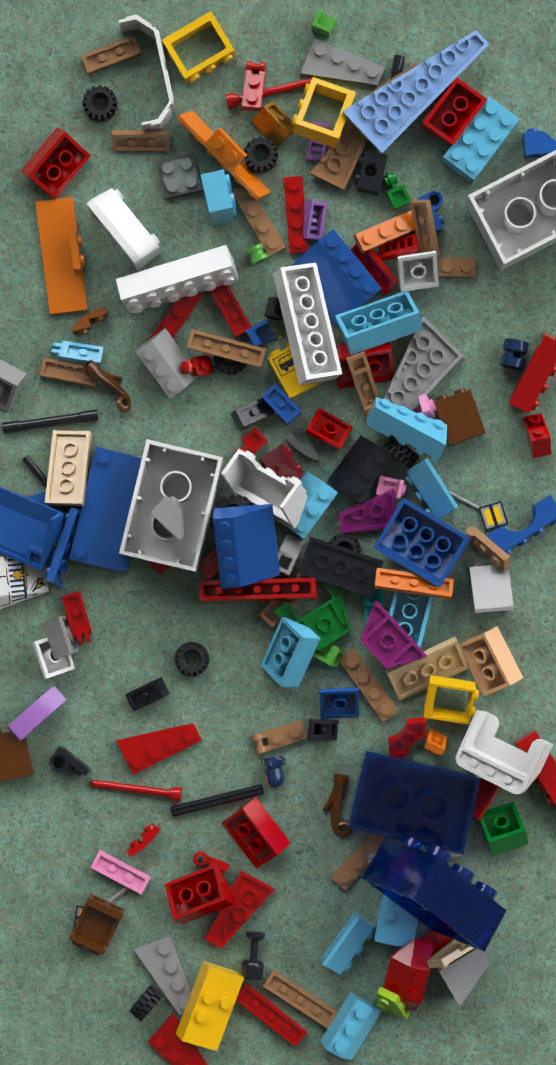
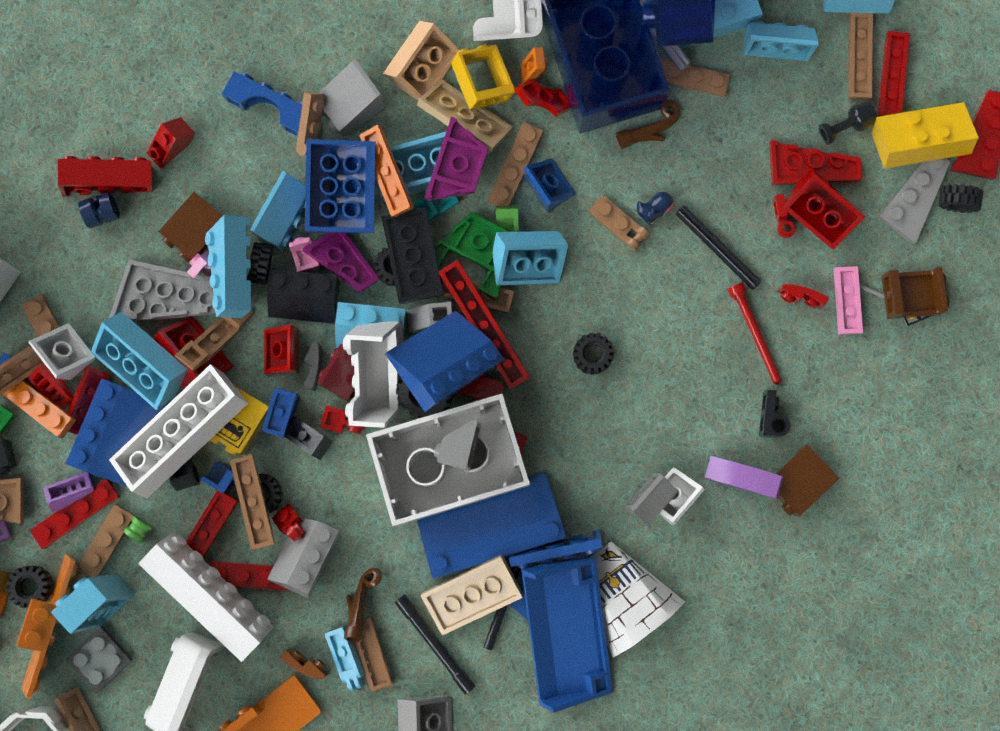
camera: 115 degrees left, 5 degrees down
(77, 616) = (619, 495): red hinge -> none
(147, 694) = (655, 376): black plate -> none
(150, 748) = (705, 341): red wing -> none
(256, 832) = (727, 189): red slope -> none
(322, 728) = (586, 185): black slope -> none
(491, 515) = (276, 143): piece -> none

